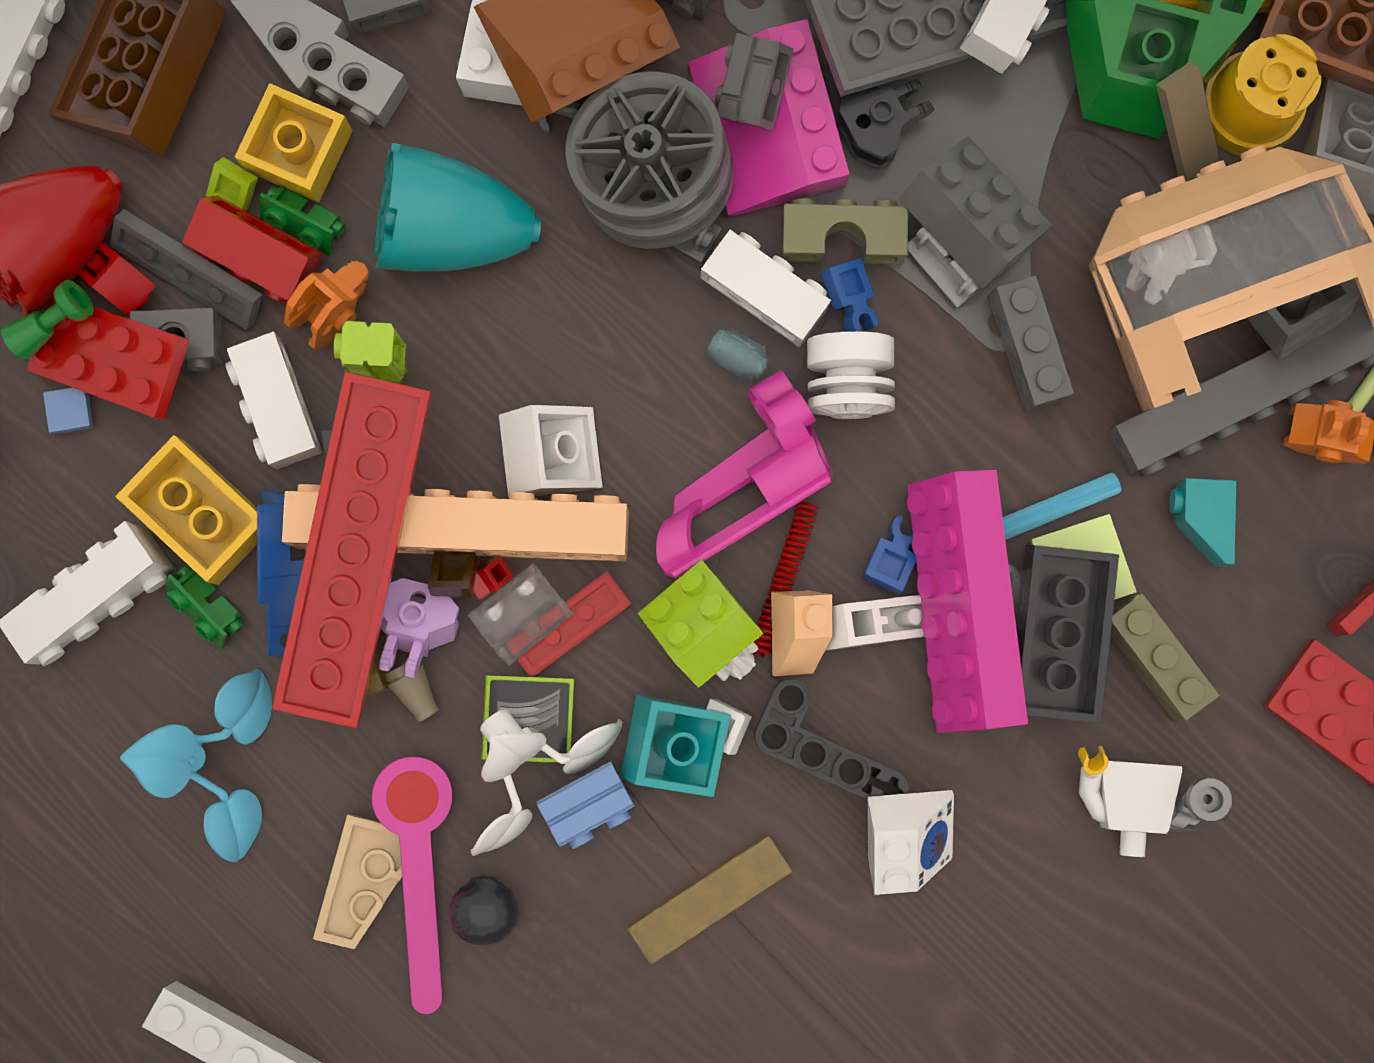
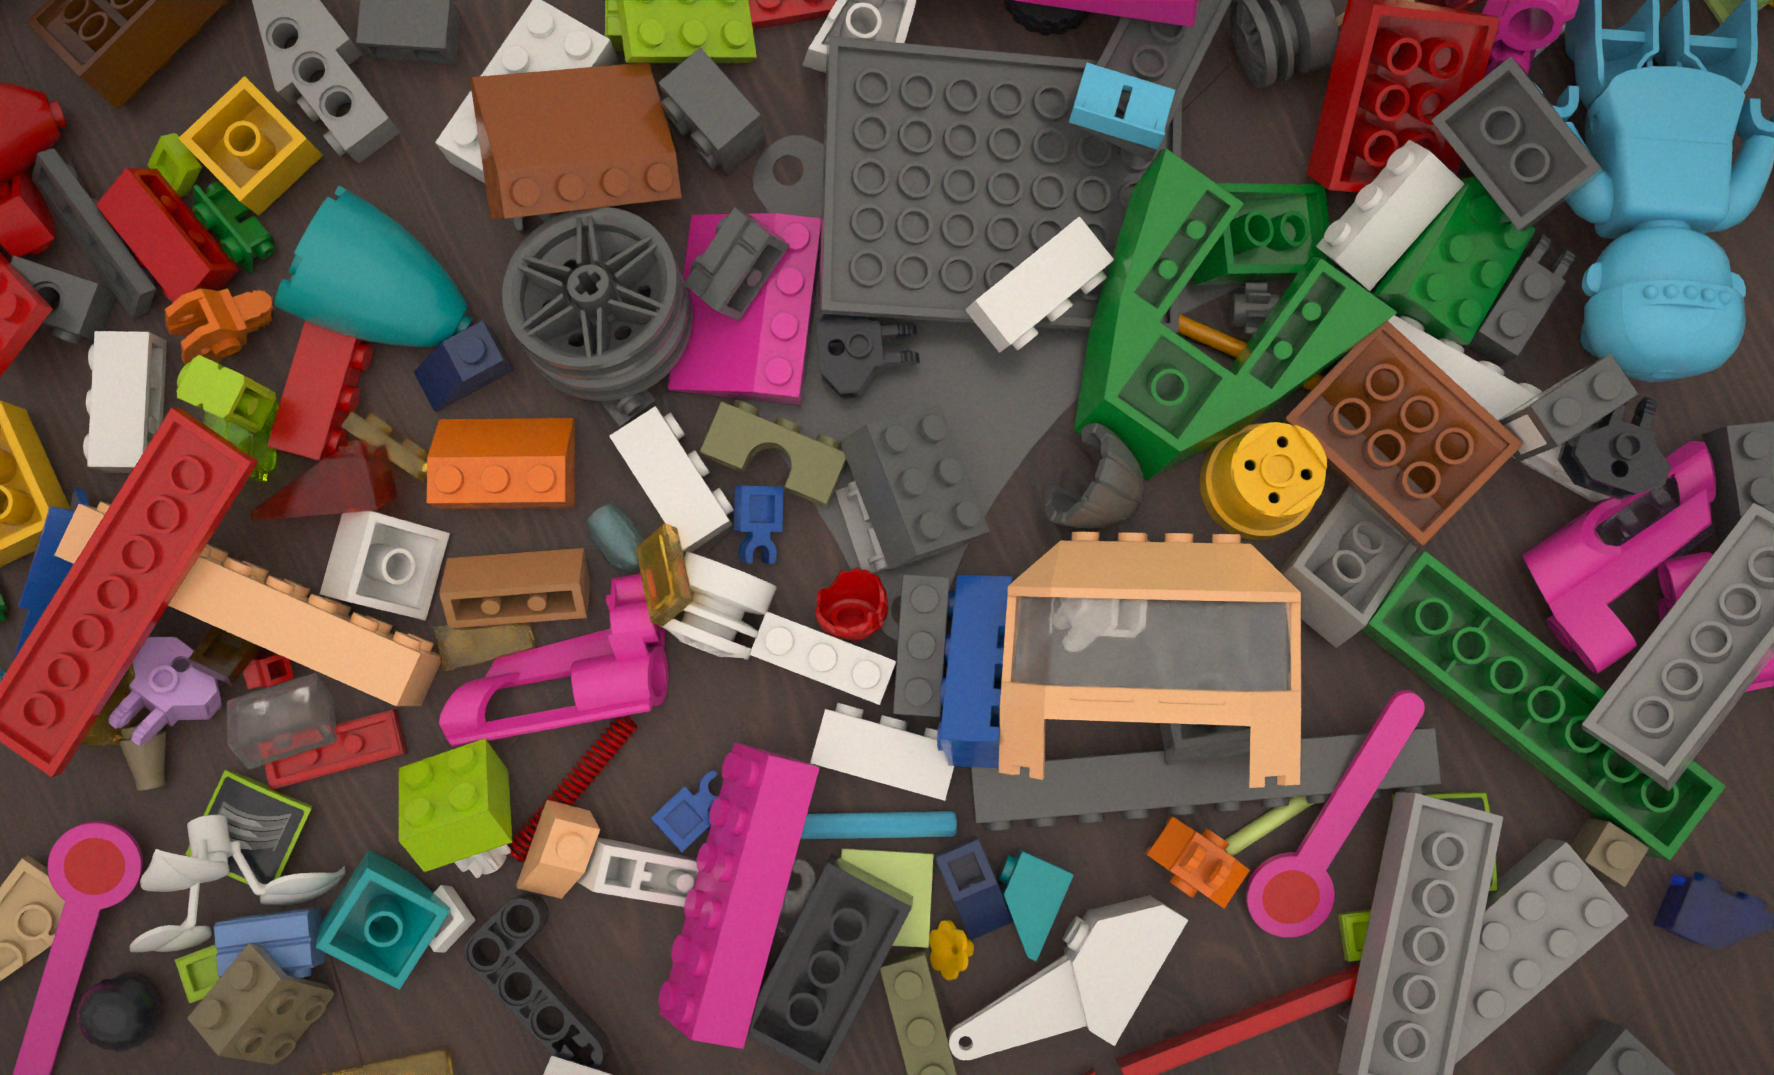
camera: 25 degrees right, 0 degrees up
(438, 330) = (319, 393): none -> red brick
(494, 392) = (345, 482): none -> clear red slope
(498, 347) = (375, 431): none -> clear yellow plate
(538, 852) = (198, 972): none -> lime tile
(548, 261) = (462, 366): none -> dark blue slope
(603, 856) = (258, 1009): none -> dark tan bracket
(617, 330) = (502, 464): none -> orange slope
(658, 482) = (481, 643): none -> clear yellow plate
(674, 426) = (515, 588): none -> medium nougat brick
(799, 363) = (664, 574): none -> clear yellow tile
(956, 386) = (823, 658): none -> white brick
(960, 332) = (852, 605): none -> red hair
(1038, 443) = (882, 752): none -> white brick
(1090, 337) = (974, 671): none -> blue wedge
(1138, 153) = (1109, 498): none -> dark grey hair
(1155, 525) = (973, 887): none -> dark blue slope
(1156, 585) = (949, 950): none -> yellow plant
(1188, 120) = (1174, 477): dark tan tile -> none
(1290, 560) = (1095, 984): none -> white slope

